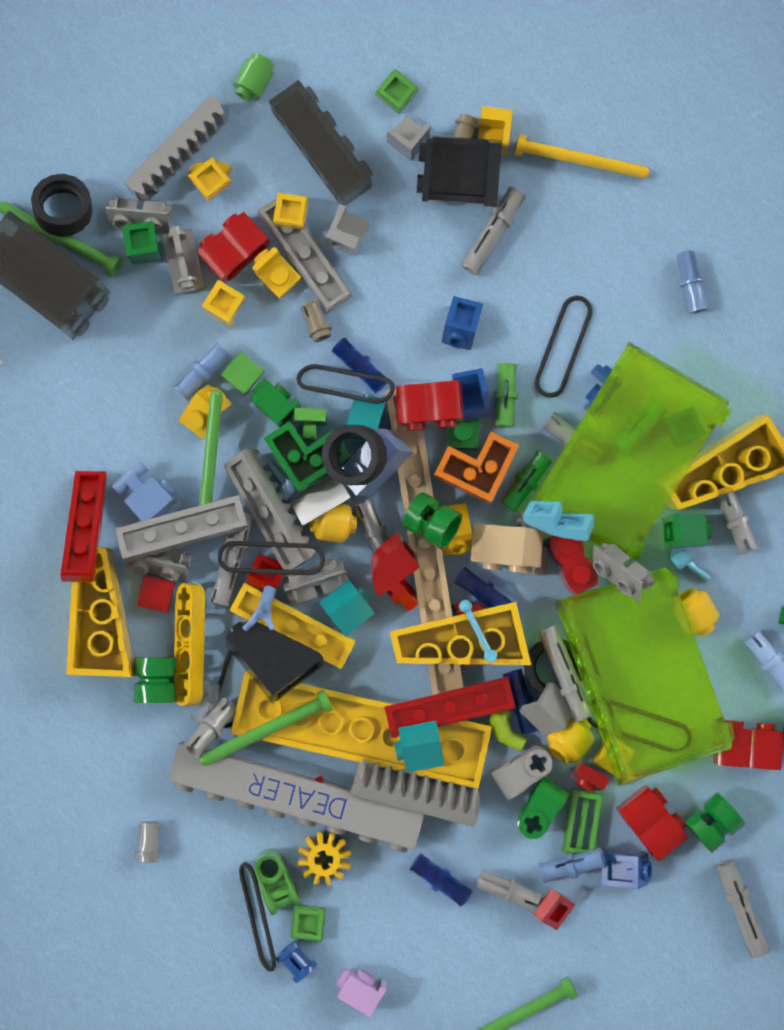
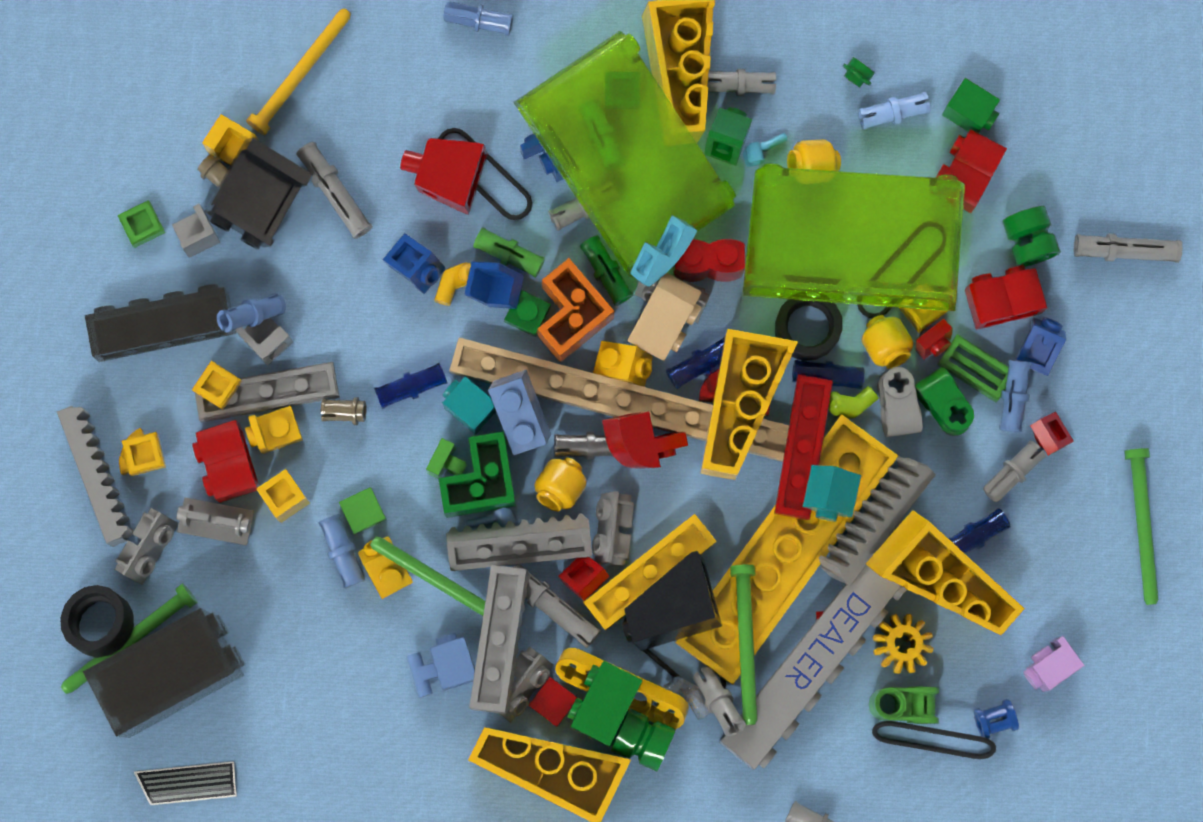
camera: 75 degrees left, 5 degrees down
(84, 526) = (451, 741): red tile -> none
(141, 242) = (177, 553): green panel -> none
(165, 637) = (605, 702): none -> green brick
(253, 77) = (57, 362): bright green brick -> none
(263, 609) = (621, 591): medium blue bar -> none
(271, 571) = (585, 565): black piece -> none
(274, 402) = (408, 490): green brick -> none
(308, 923) = (962, 691): bright green tile -> none
(319, 500) = (531, 486): white sticker -> none
(332, 446) = (494, 449): black tyre -> none
(341, 394) = (413, 400): black piece -> none
(348, 607) = (655, 506): teal brick -> none
(360, 210) = (251, 312): none -> medium blue pin
(392, 861) = (937, 569): none -> yellow wedge
(428, 518) = (610, 366): green wheel -> none
(430, 404) = (486, 329): red brick -> none
(461, 358) = (452, 279): none -> yellow arm
(489, 655) = (769, 377): medium azure hinge -> none
(550, 315) = (447, 171): none -> red torso
(550, 712) = (852, 346): light grey panel -> none
(566, 674) = (820, 314): light grey pin -> none
(611, 562) = (729, 220): light grey hinge -> none

